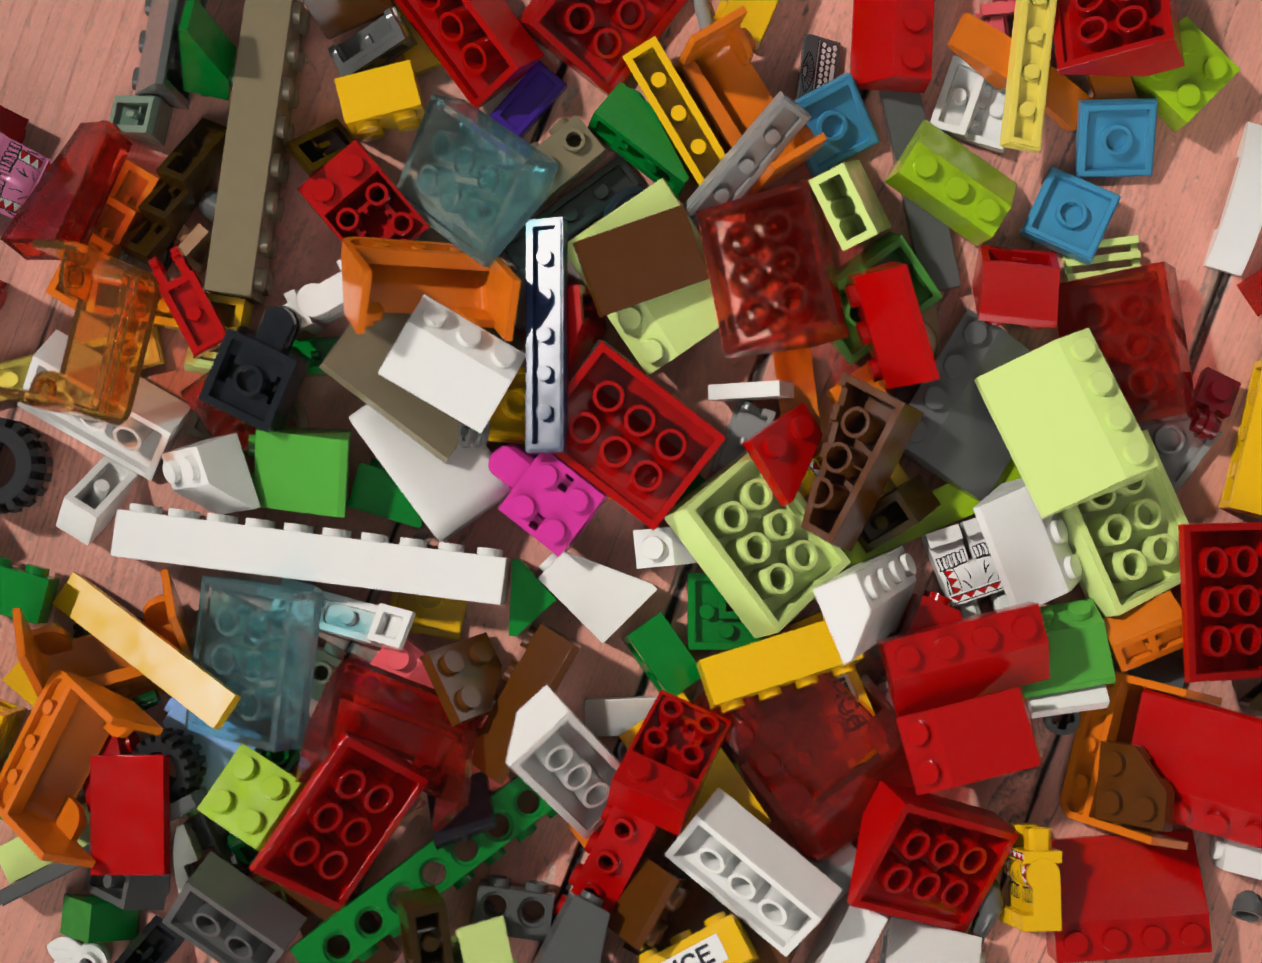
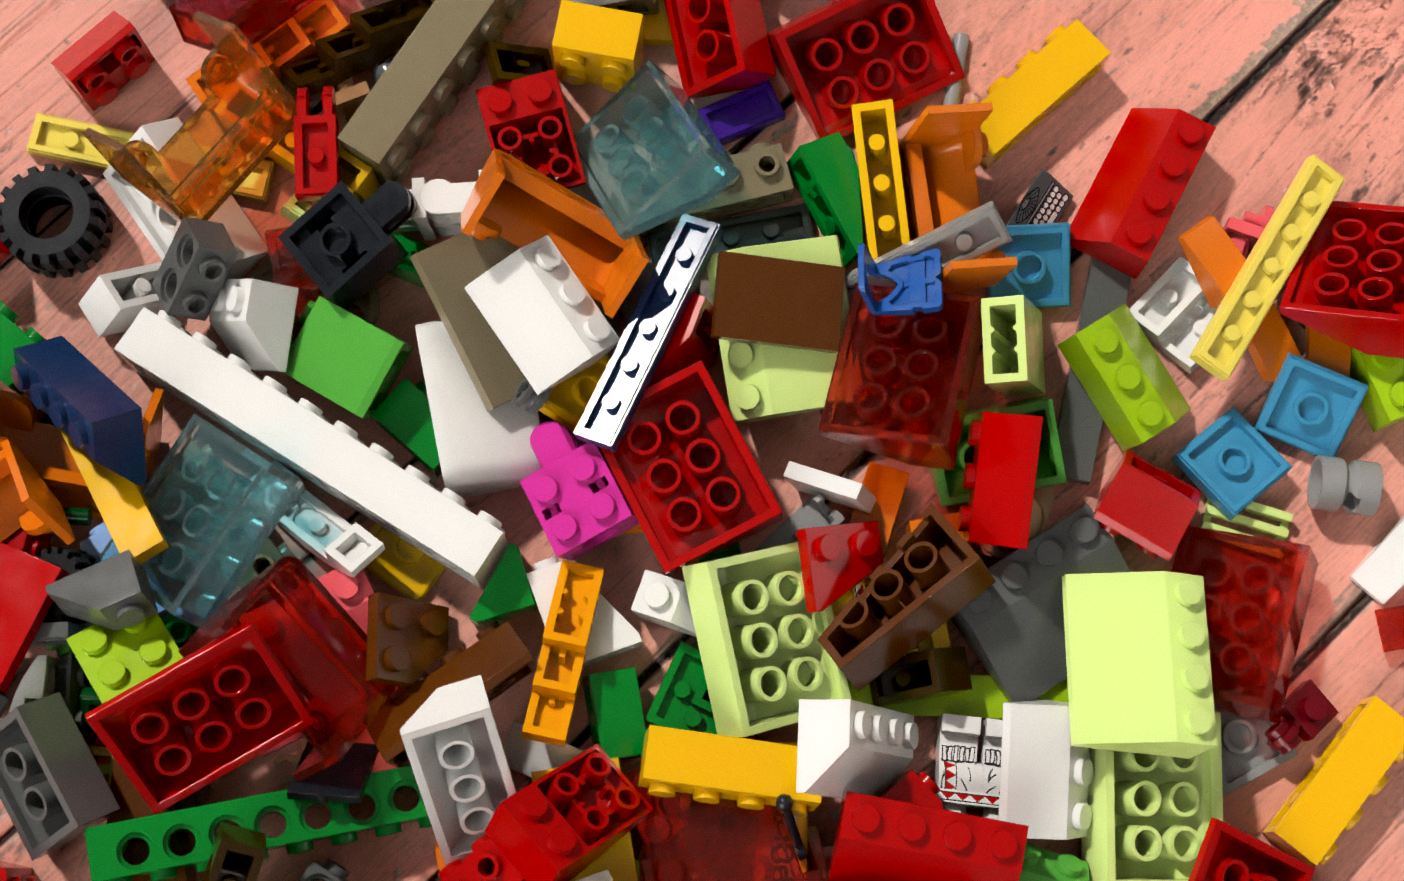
camera: 25 degrees right, 10 degrees down
(109, 614) = (83, 405): none -> dark blue wedge
(141, 456) = (194, 268): none -> dark grey brick
(213, 758) = (107, 593): none -> dark grey slope
(599, 629) = (563, 653): none -> light orange slope
(748, 188) = (916, 278): none -> blue piece
(836, 672) = (784, 803): none -> black hinge
(1176, 191) = (1350, 486): none -> light grey wheel

